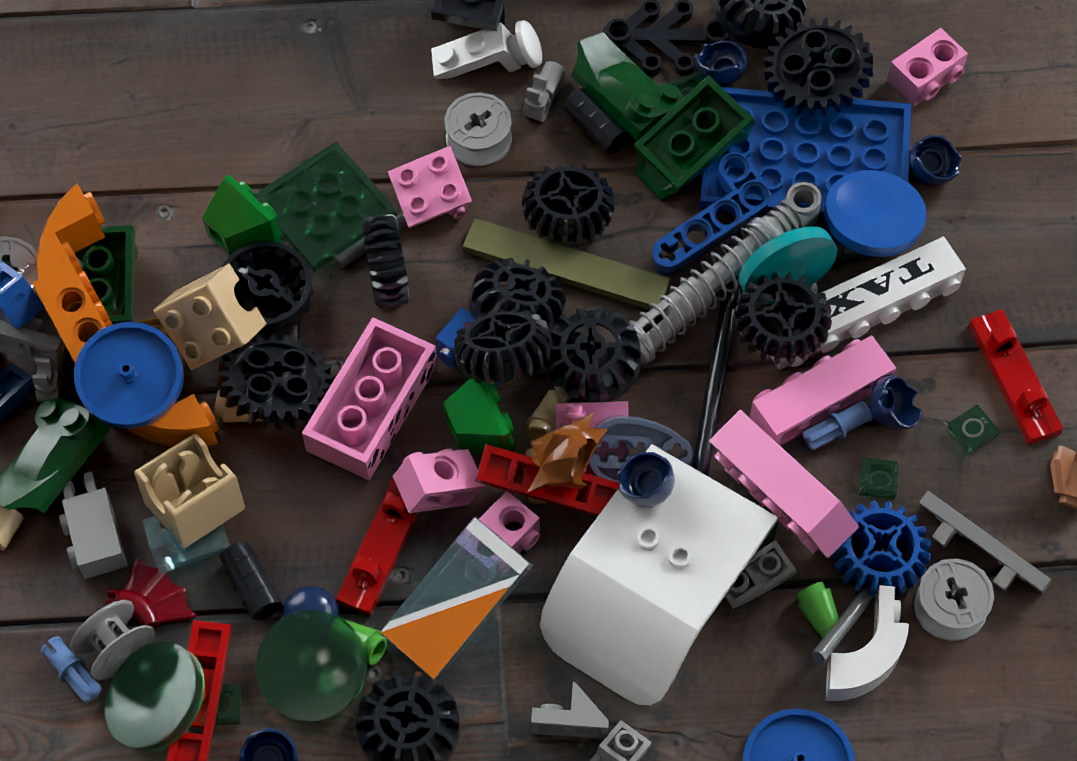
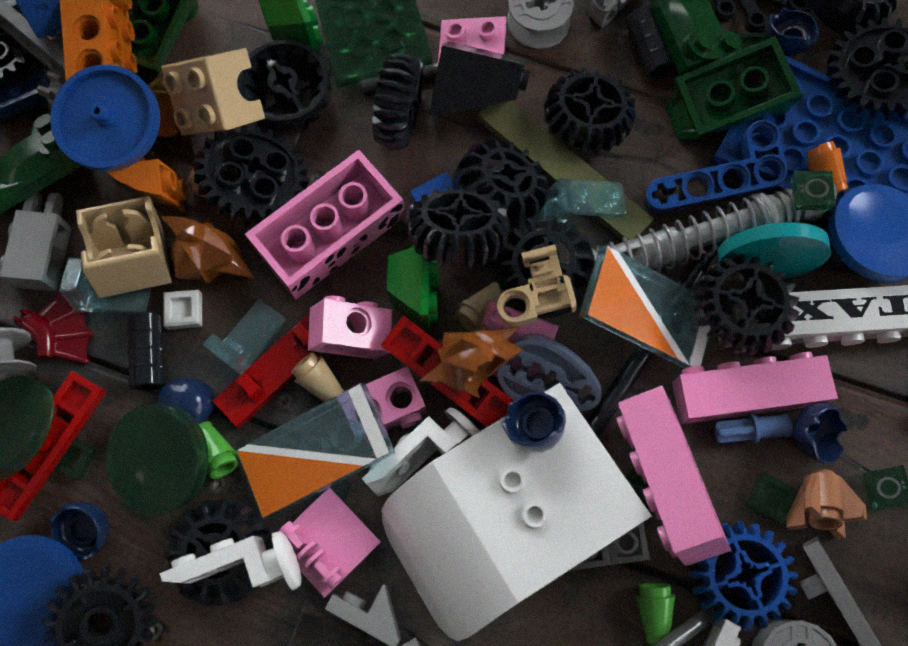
camera: 25 degrees right, 10 degrees up
(264, 467) = (204, 251): none -> dark orange hair
(264, 532) = (182, 309): none -> white tile
(341, 531) = (247, 338): none -> clear light blue bracket
(423, 708) = (262, 565): none -> white piece
(425, 537) = (316, 377): none -> tan cone
(450, 213) = (475, 78): none -> black slope
(501, 676) = (329, 541): none -> bright pink hinge
(547, 560) = (416, 448): none -> white piece
(599, 283) = (584, 197): none -> clear light blue bracket
(607, 370) = (547, 291): none -> tan piece
(698, 356) = (644, 308): none -> tile
(798, 198) = (813, 190): none -> clear green tile
(801, 168) = (828, 158): none -> orange cone
(924, 461) = (826, 503): none -> nougat brick

